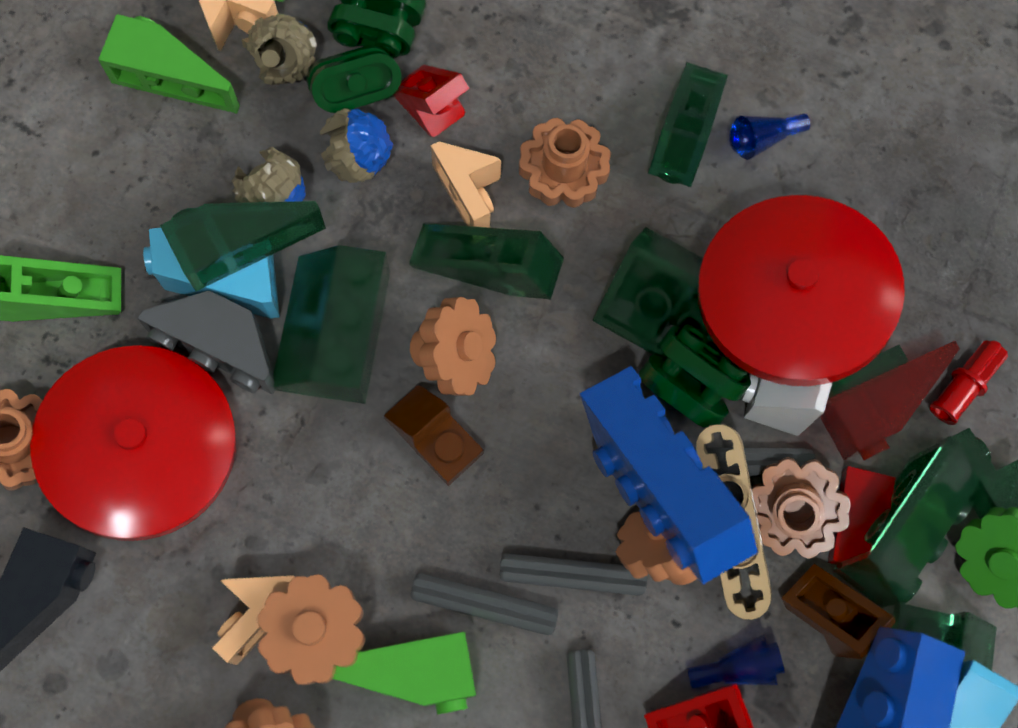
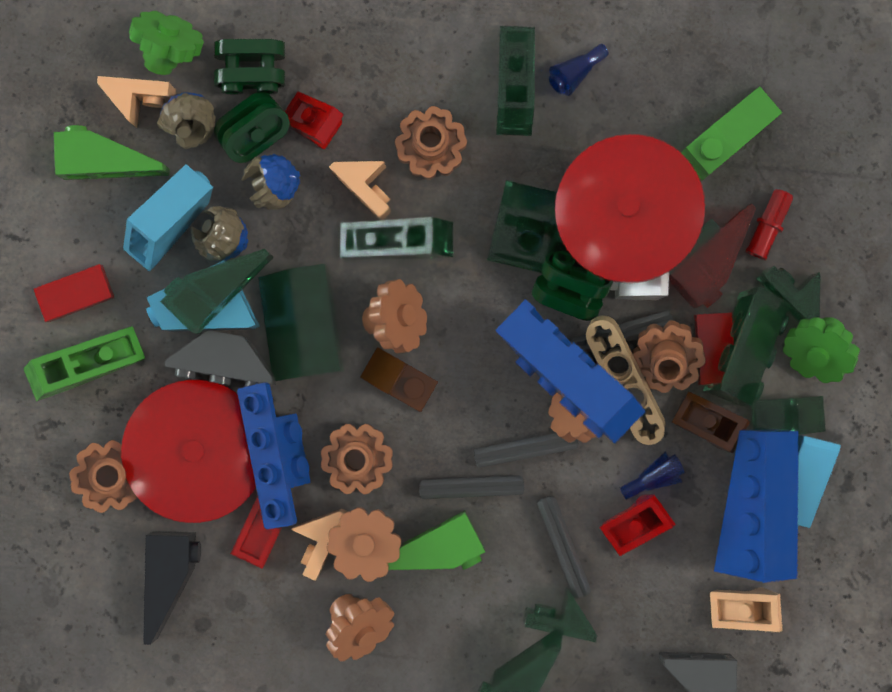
camera: 10 degrees left, 15 degrees up
(65, 208) = (73, 293): none -> red tile
(184, 574) = (255, 541): none -> red tile
(205, 147) = (166, 216): none -> medium azure slope
(237, 476) = (274, 453): none -> blue bracket
(343, 517) = (356, 458): none -> nougat plant
(948, 254) = (731, 133): none -> bright green slope

